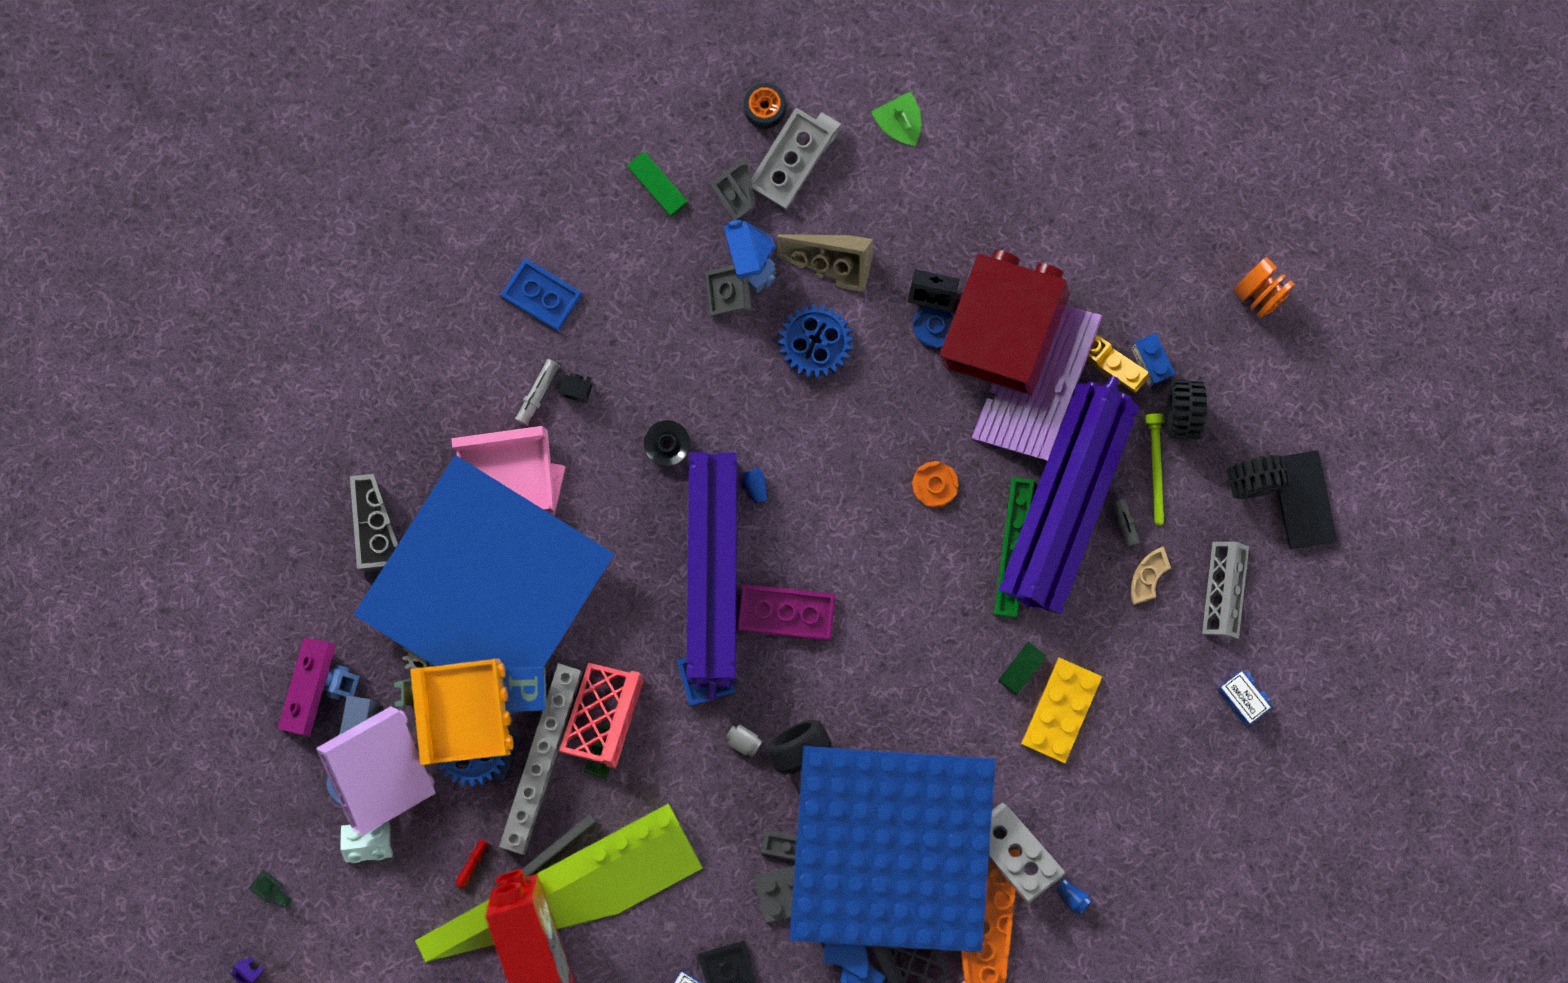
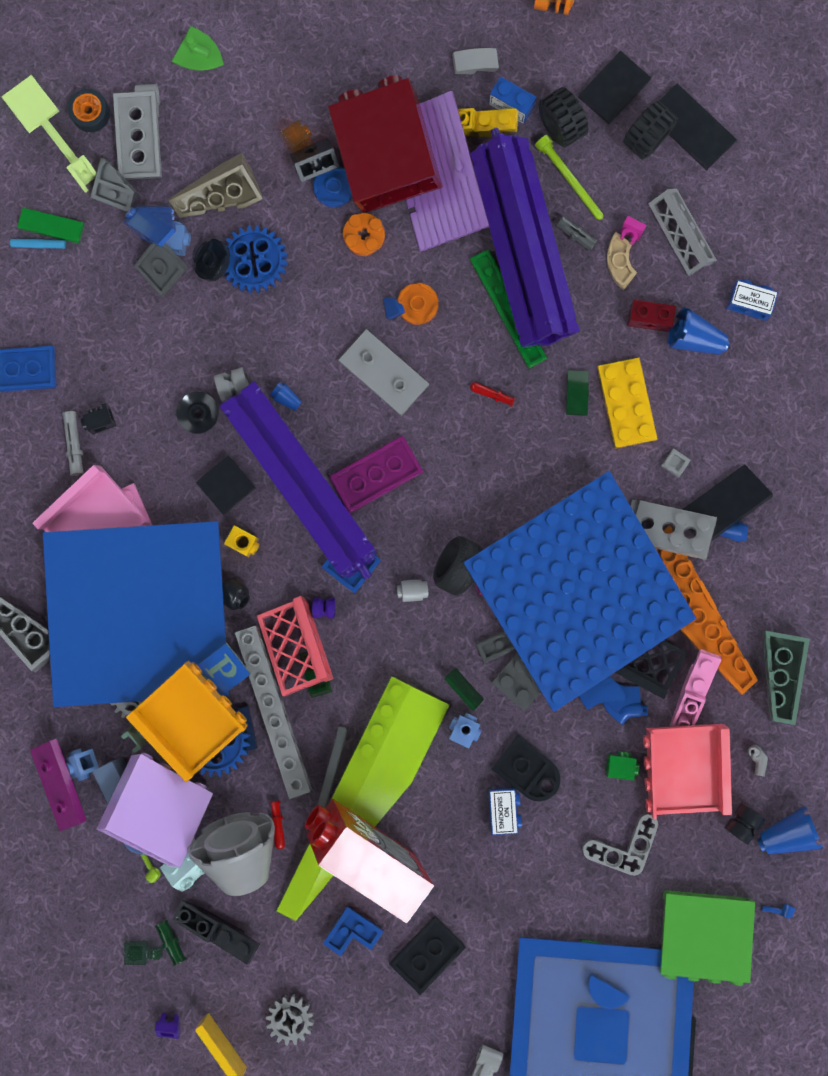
camera: 35 degrees left, 5 degrees up
(302, 899) = (170, 942): none -> dark green pin
(331, 827) = (153, 873): none -> lime hand
(350, 918) = (216, 930): none -> black slope
(418, 859) = (235, 852): none -> light grey cone
(583, 629) = (235, 594): none -> black head
(615, 580) = (233, 539): none -> yellow brick
(634, 192) = (38, 243): none -> dark azure piece
(645, 526) = (225, 485): none -> black tile
(648, 696) = (318, 607): none -> dark purple wheel
(690, 903) = (464, 738): none -> medium blue brick
(715, 439) = (230, 384): none -> light grey wheel
(717, 70) = (34, 110): none -> yellowish green piece
(725, 863) = (464, 689): none -> dark green slope
(777, 316) = (212, 260): none -> black tile
(859, 525) = (384, 372): none -> light grey plate
(909, 472) = (393, 308): none -> blue tile
(931, 400) = (357, 224): none -> orange plate
(933, 258) = (297, 136): none -> clear orange brick
(941, 610) = (488, 392): none -> red piece
(1067, 797) = (675, 463): none -> light grey tile
(1092, 866) = (731, 499): none -> black tile
(1139, 646) = (651, 315): none -> dark red brick
(1146, 300) = (475, 60): none -> light grey slope
(1169, 693) = (696, 334): none -> blue cone
(1180, 555) = (632, 229): none -> dark pink tile
(1257, 413) = (614, 87): none -> black tile

